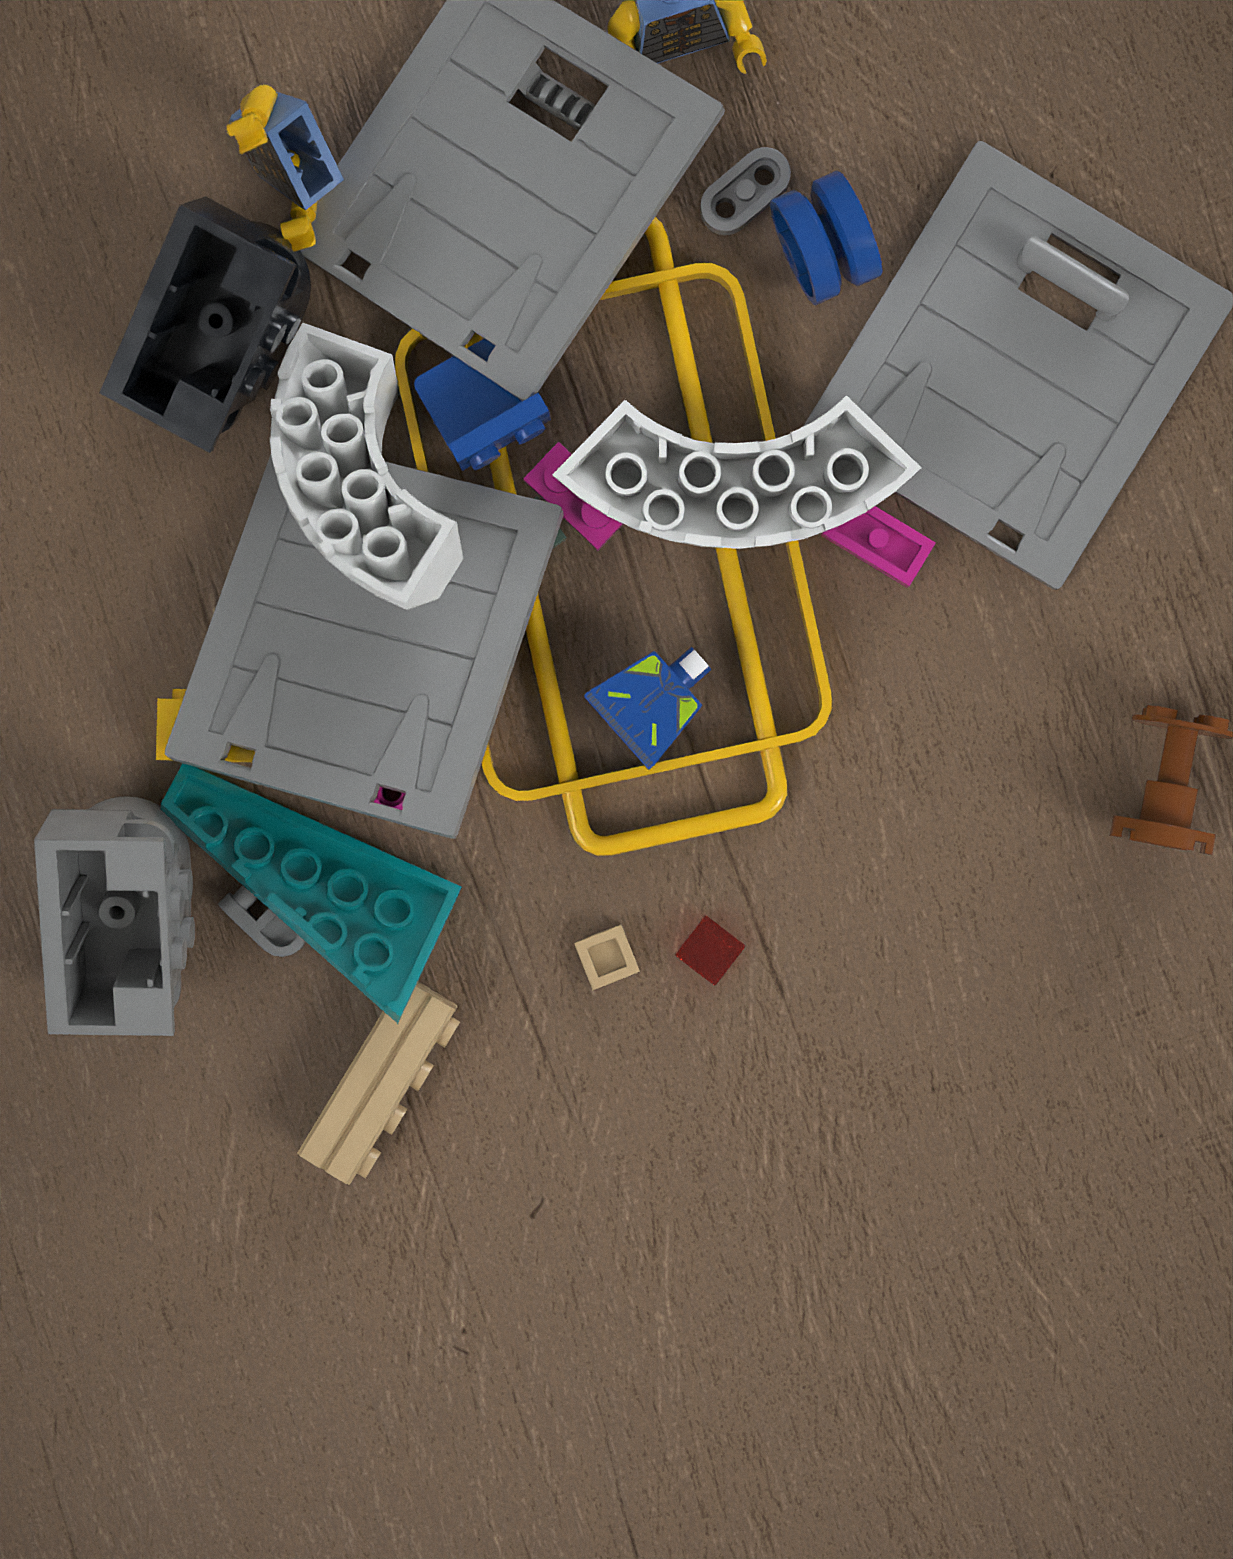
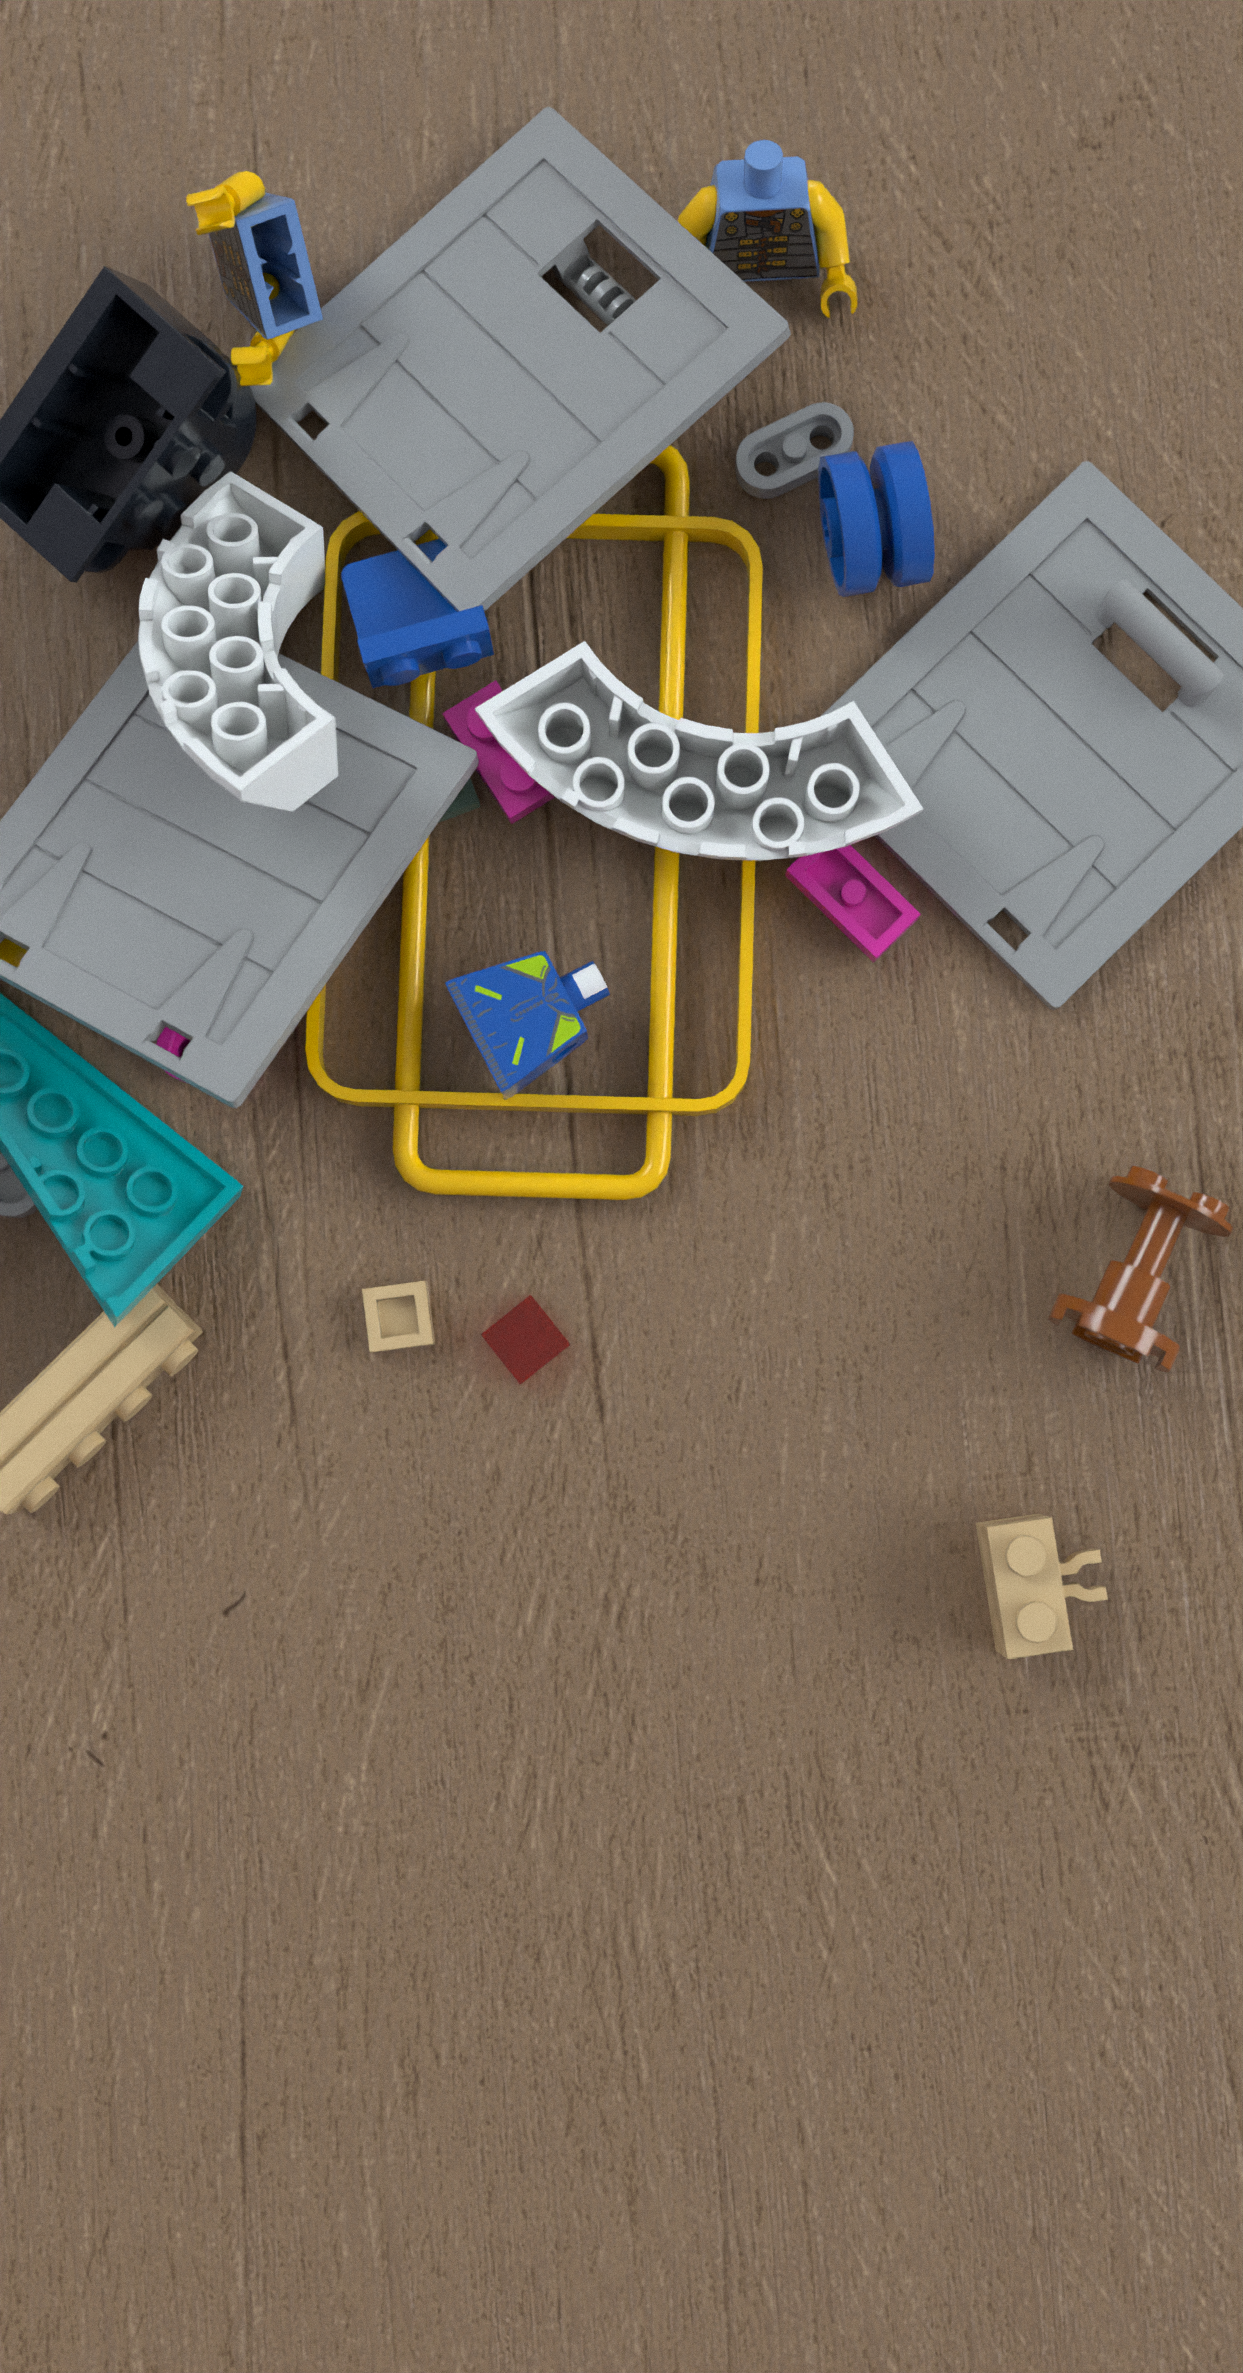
camera: 20 degrees right, 5 degrees down
(1140, 1042) = (1027, 1585): none -> tan brick

